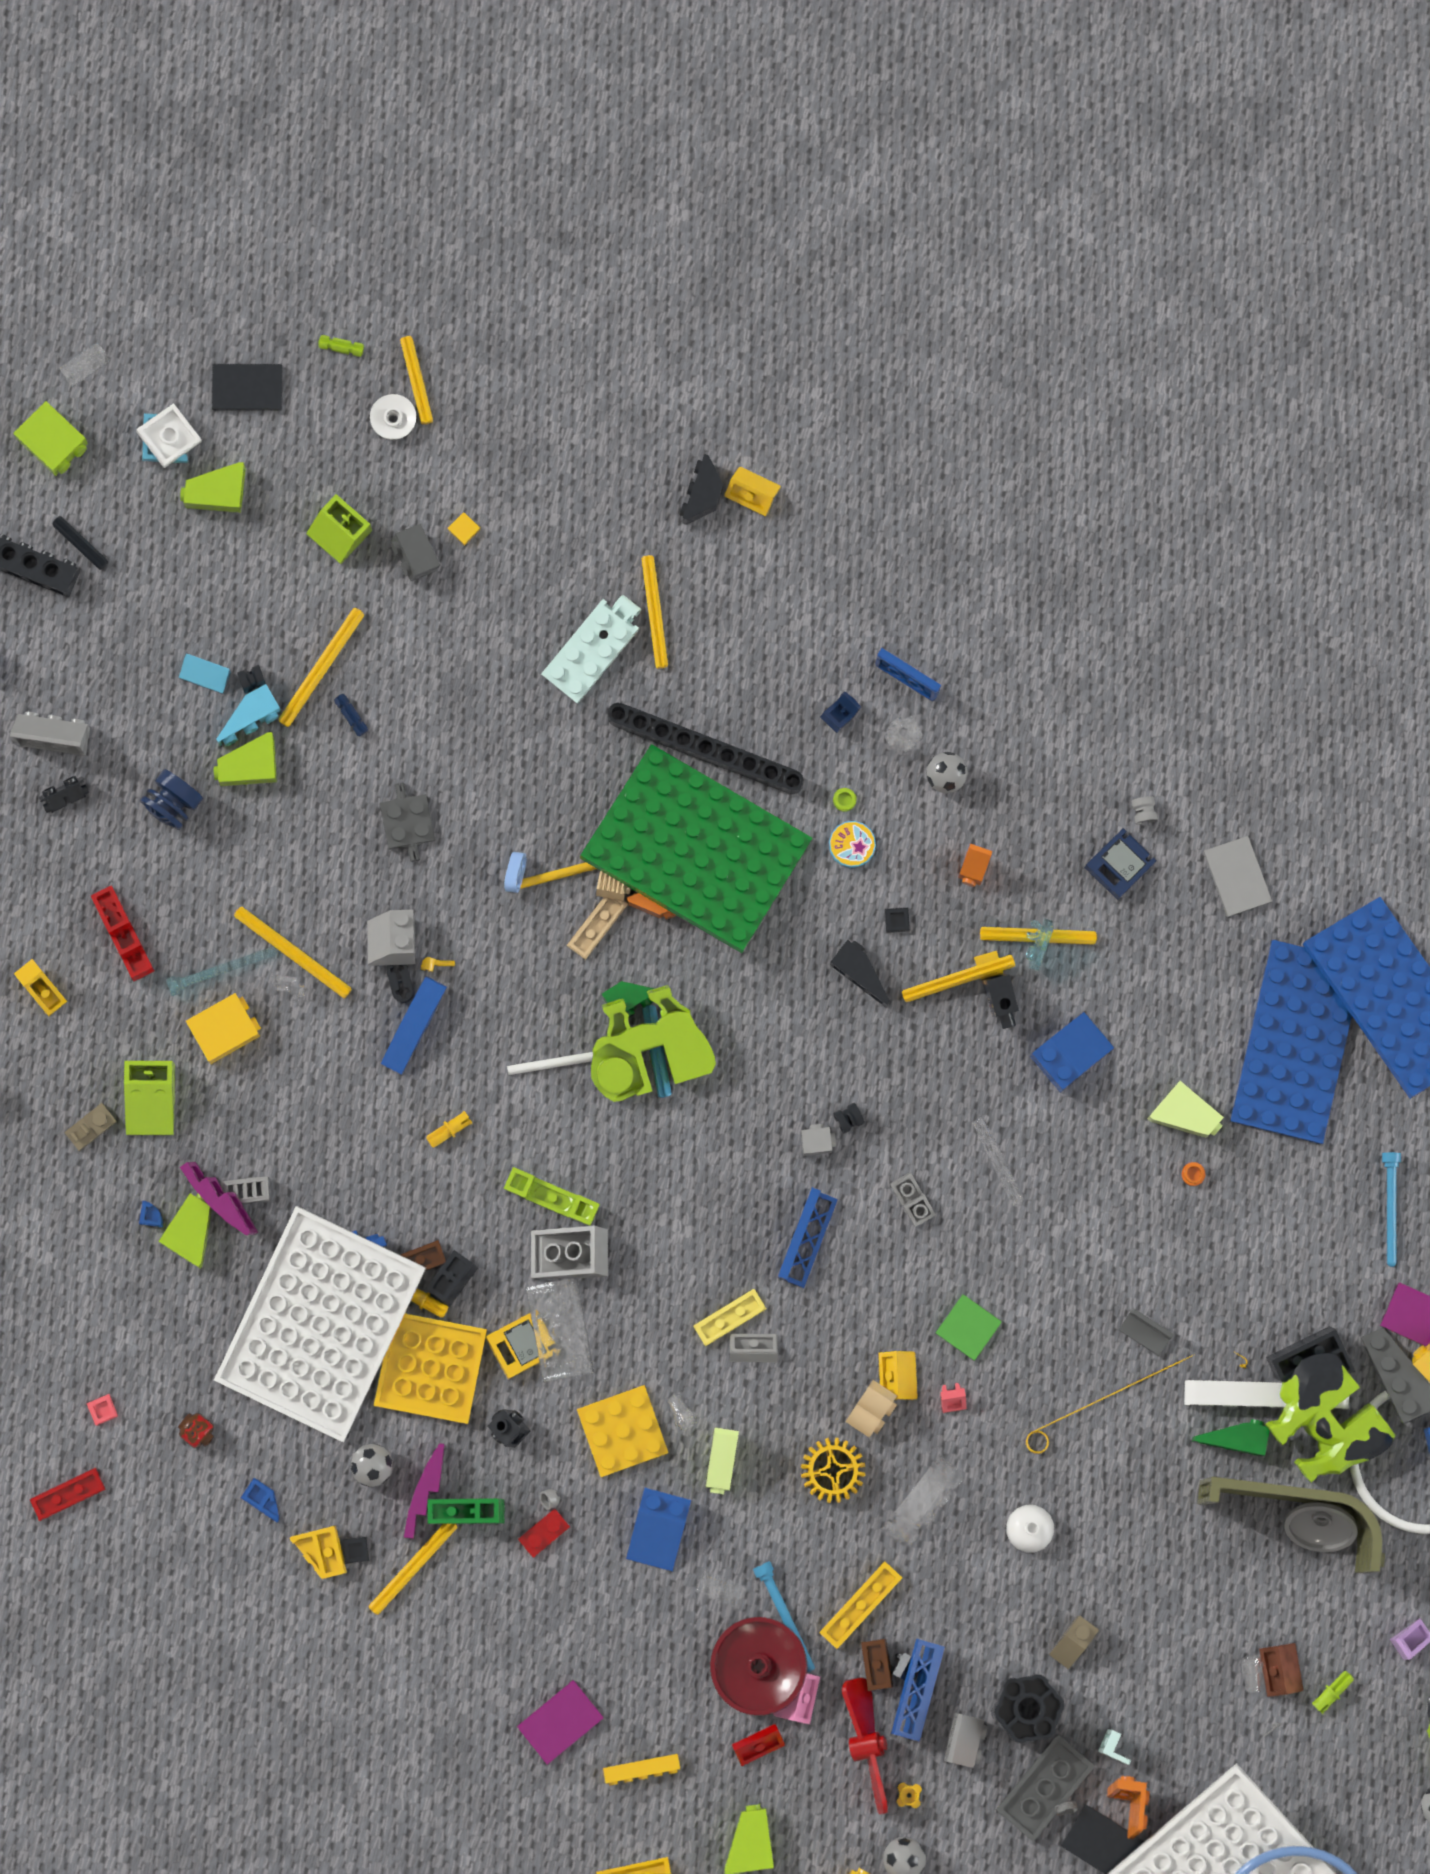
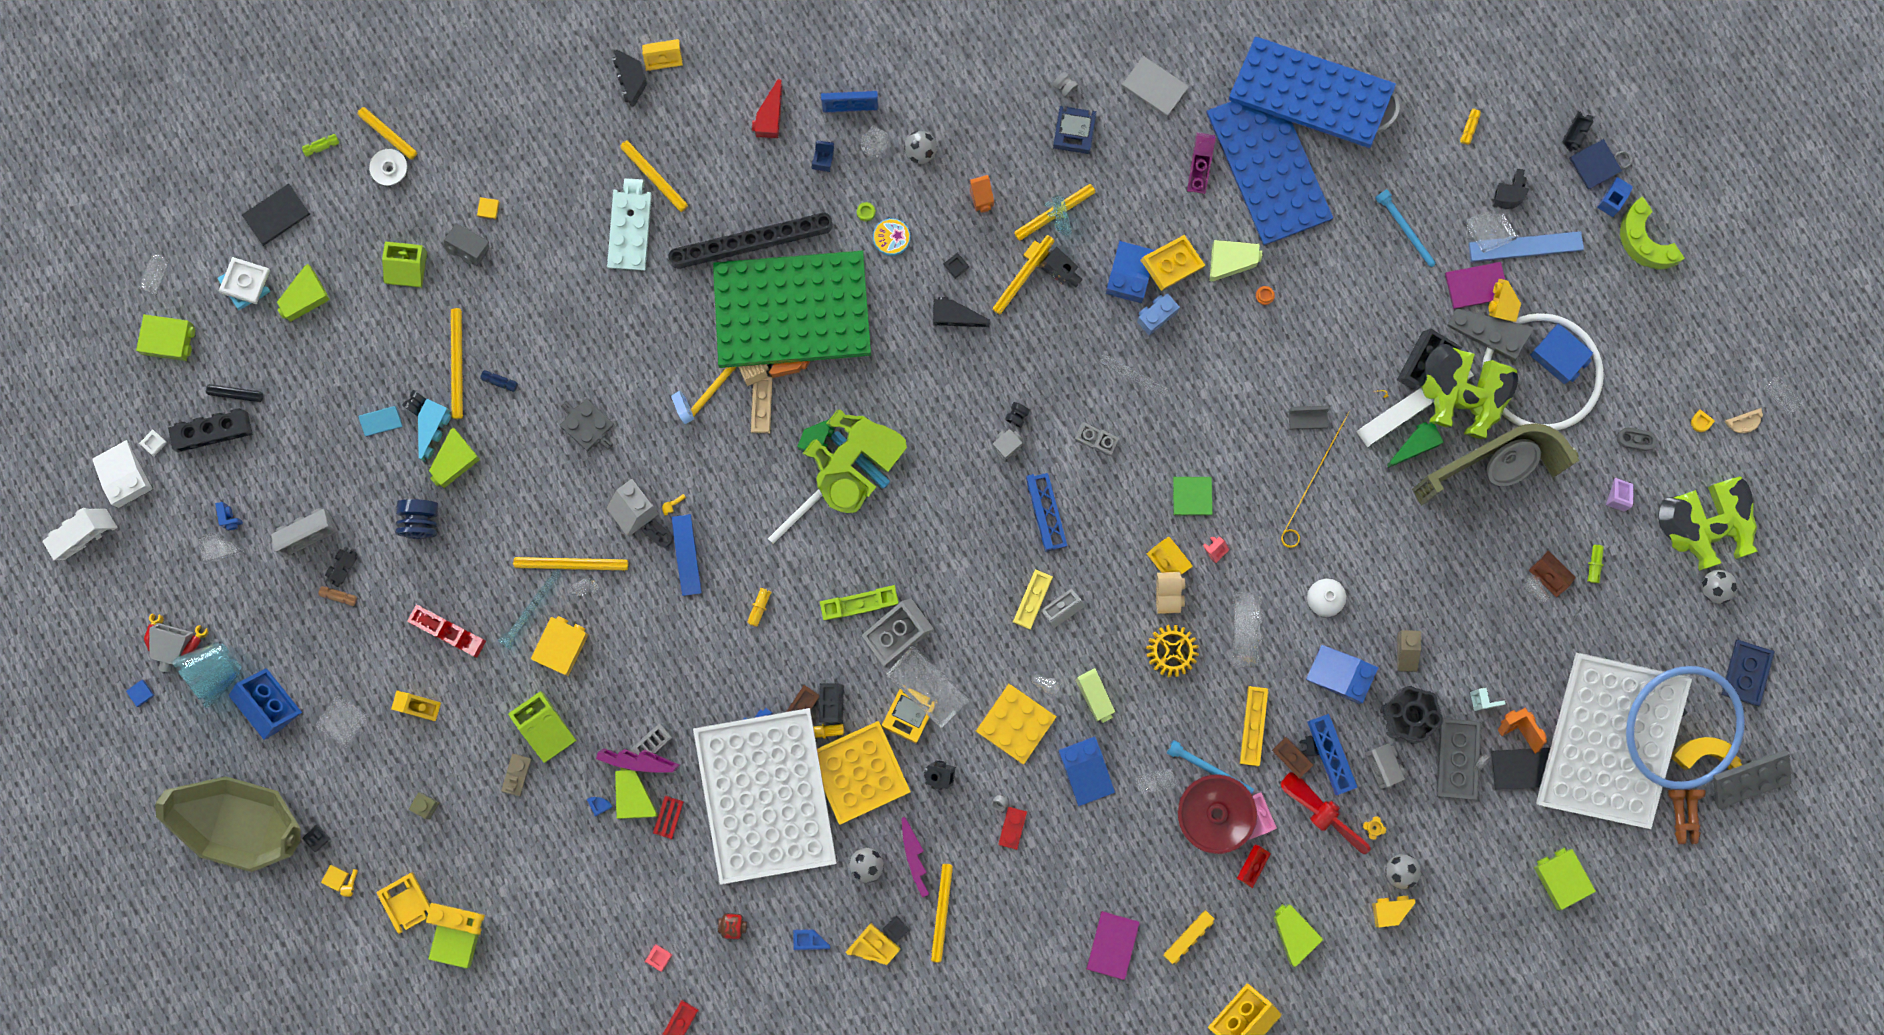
camera: 30 degrees left, 0 degrees up
(40, 821) = (337, 595): none -> medium nougat axle
(193, 1289) = (680, 804): none -> red tile
(466, 1511) = (951, 850): green slope -> none
(813, 632) = (768, 115): none -> red slope
(988, 1616) = (1342, 674): none -> slope
(1067, 1116) = (1154, 317): none -> medium blue brick
(1120, 1073) = (1172, 262): none -> yellow plate
(1226, 989) = (1201, 162): none -> magenta slope

